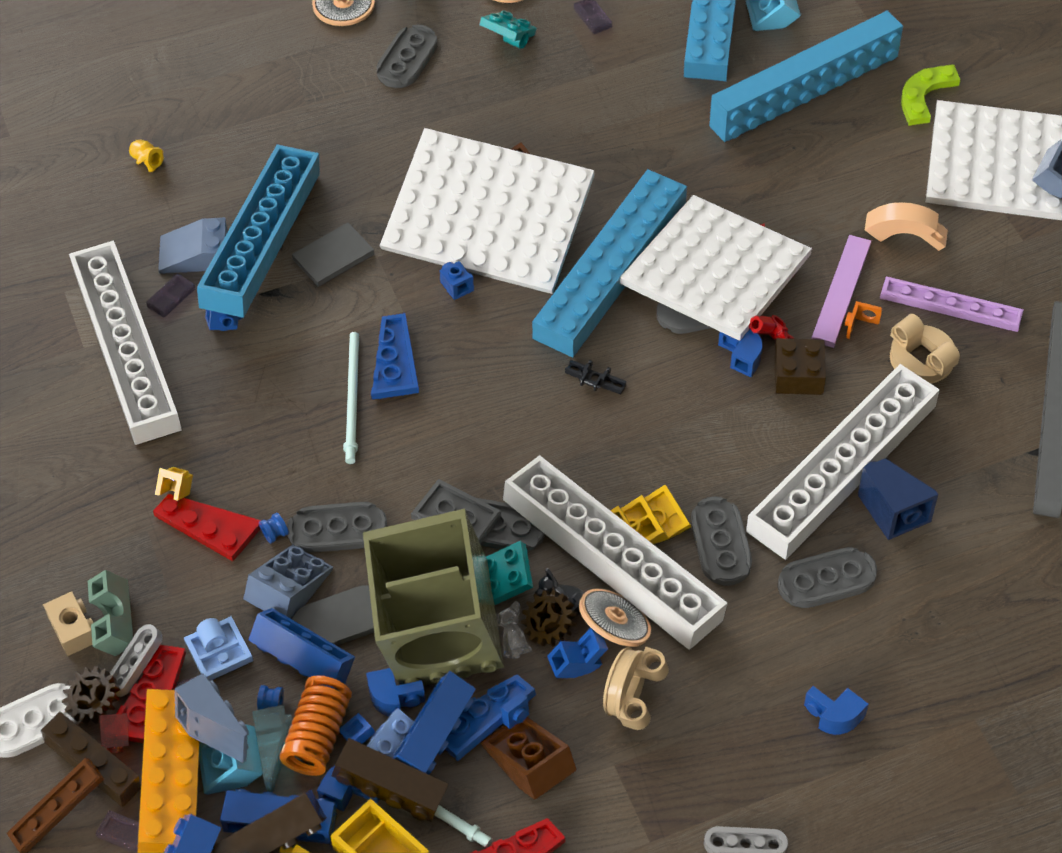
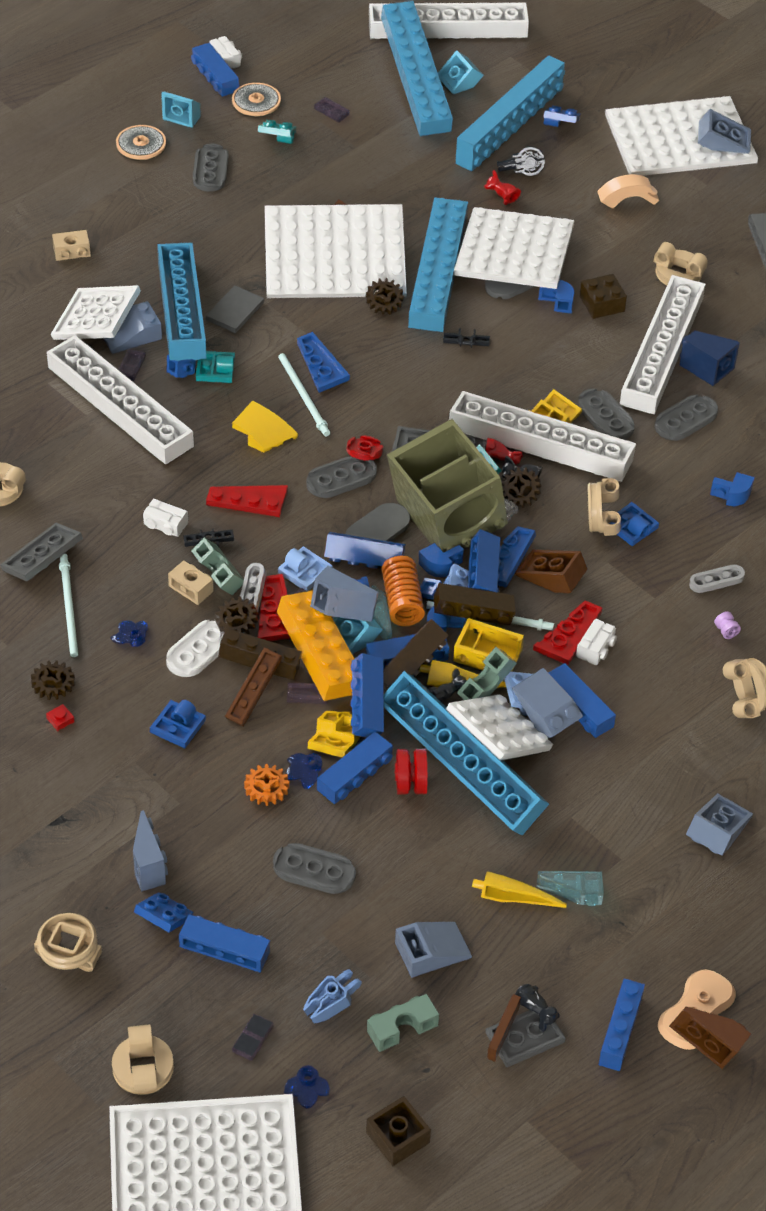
camera: 25 degrees left, 5 degrees down
(90, 521) = (165, 517): none -> white brick
(114, 732) = (267, 630): clear red bracket -> none
(134, 561) = (215, 534): none -> black piece
(146, 153) = (56, 276): yellow animal -> none
(159, 216) = (96, 312): none -> white plate
(174, 480) = (213, 476): yellow window -> none
(186, 117) = (71, 245): none -> tan brick
(265, 327) = (216, 367): none -> teal plate
(273, 430) = (263, 427): none -> yellow slope
(273, 527) = (299, 486): blue wheel -> none
(286, 581) = (327, 515): sand blue slope -> none
(384, 497) = (364, 448): none -> red tile
(454, 275) = (335, 302): blue brick -> none
(510, 287) = (384, 296): none -> dark brown gear
(515, 710) = (530, 545): blue plate -> none
(549, 553) = (498, 450): none -> red animal
(579, 657) = (555, 504): blue brick -> none
(614, 617) = (565, 473): piece -> none
(673, 719) = (635, 524): none -> blue plate
(750, 182) = (504, 190): none -> red animal
(769, 325) = (571, 276): red bar -> none
(790, 150) = (527, 162): none -> pin
(841, 290) = (603, 241): lavender tile -> none
(858, 314) = (621, 259): orange bracket -> none
(869, 93) = (554, 114): none -> blue plate
(921, 84) = (587, 105): lime plate -> none
(951, 304) = (680, 234): lavender tile -> none

